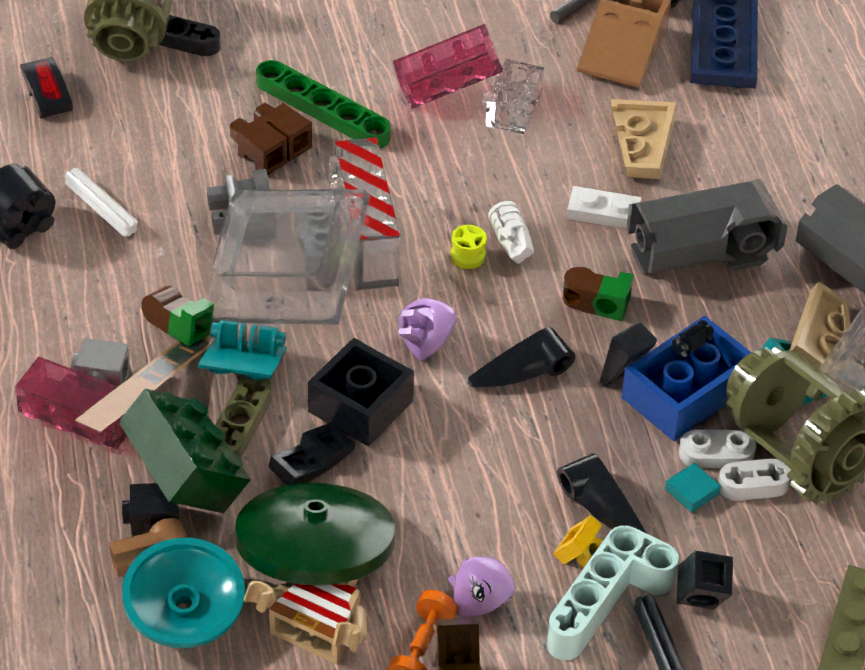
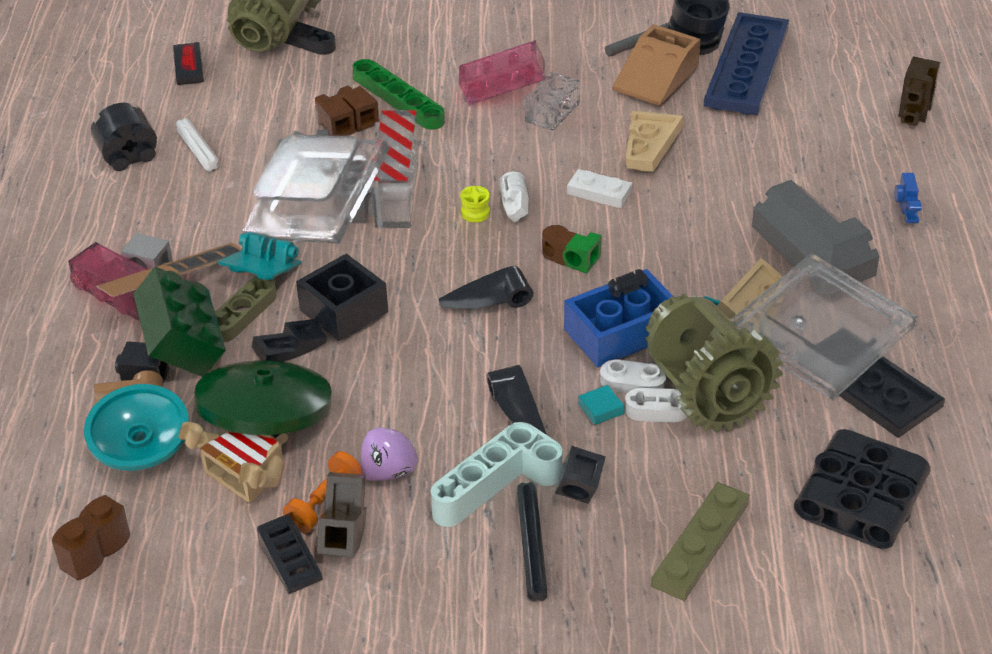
camera: 15 degrees right, 5 degrees down
(178, 314) = (220, 226): leg -> none
(426, 326) = (415, 256): lavender piece -> none
(579, 541) = (484, 432): yellow tile -> none
(624, 350) = (570, 284): black slope -> none
(707, 225) = (676, 205): dark grey brick -> none

